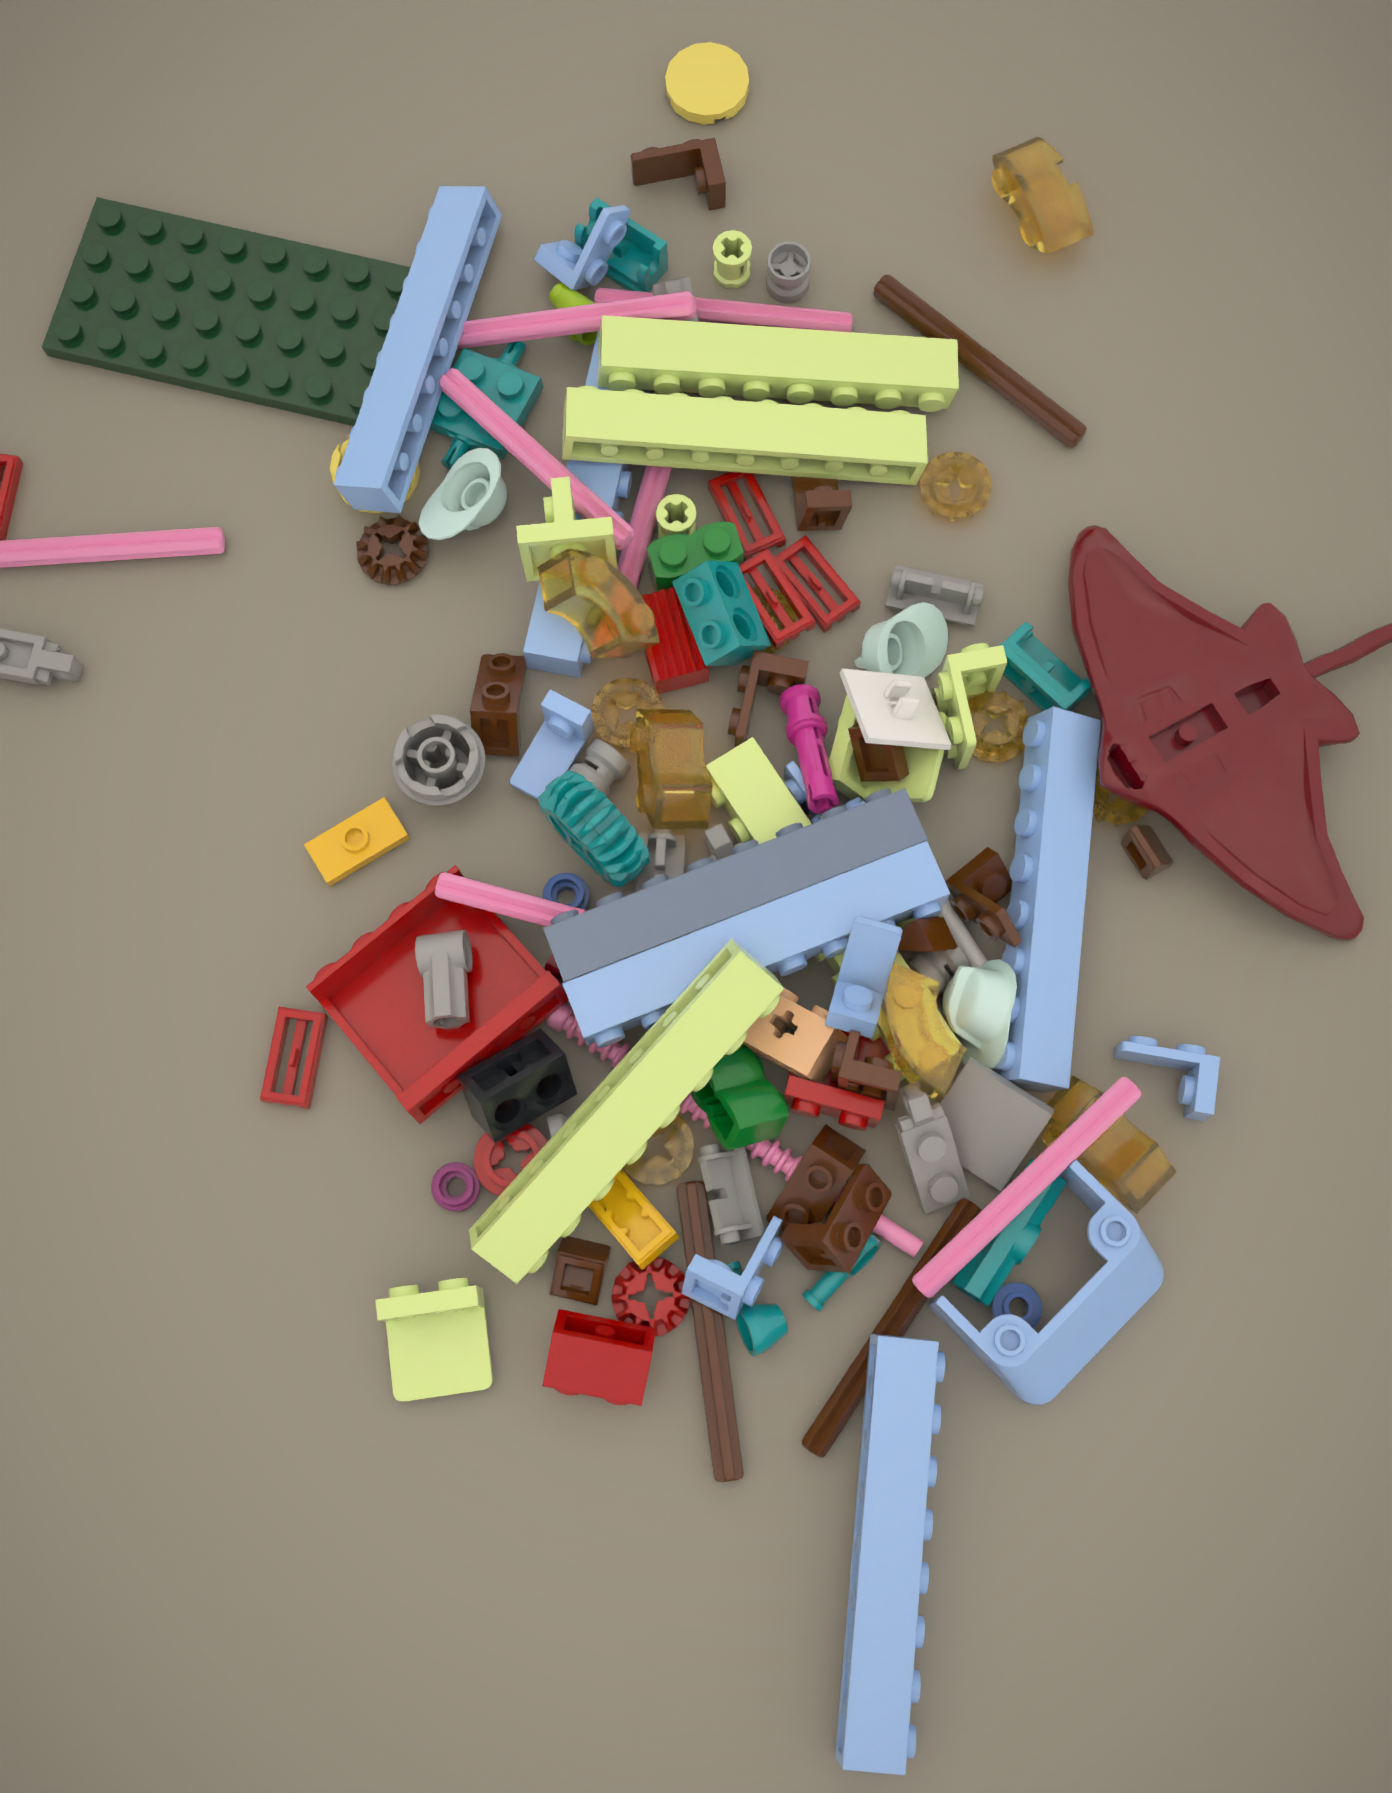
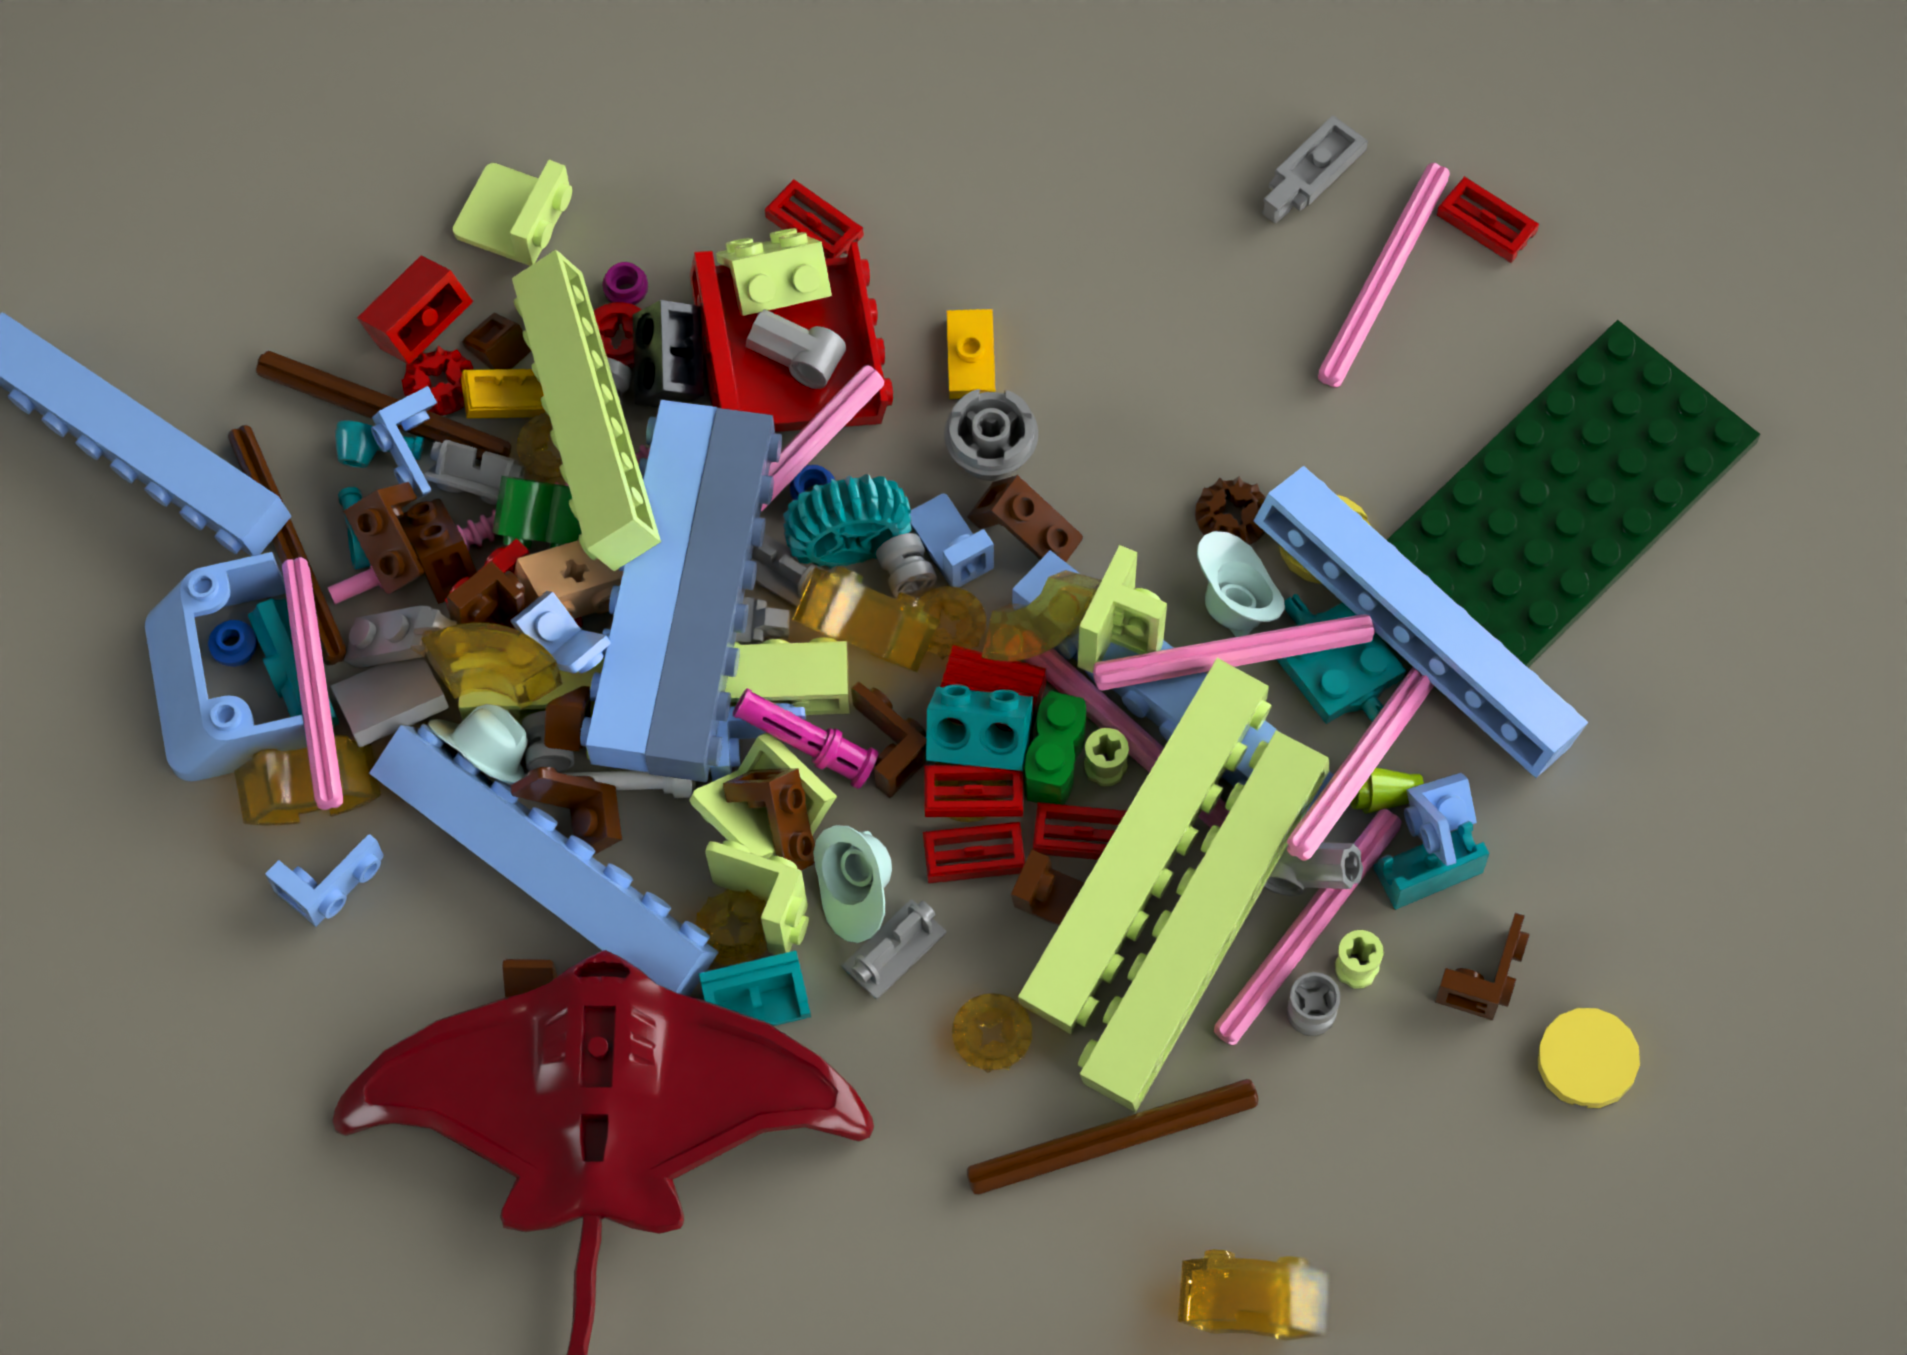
camera: 120 degrees right, 10 degrees down
(370, 1046) = (776, 271): none -> yellowish green bracket
(895, 709) = (784, 806): white piece -> none

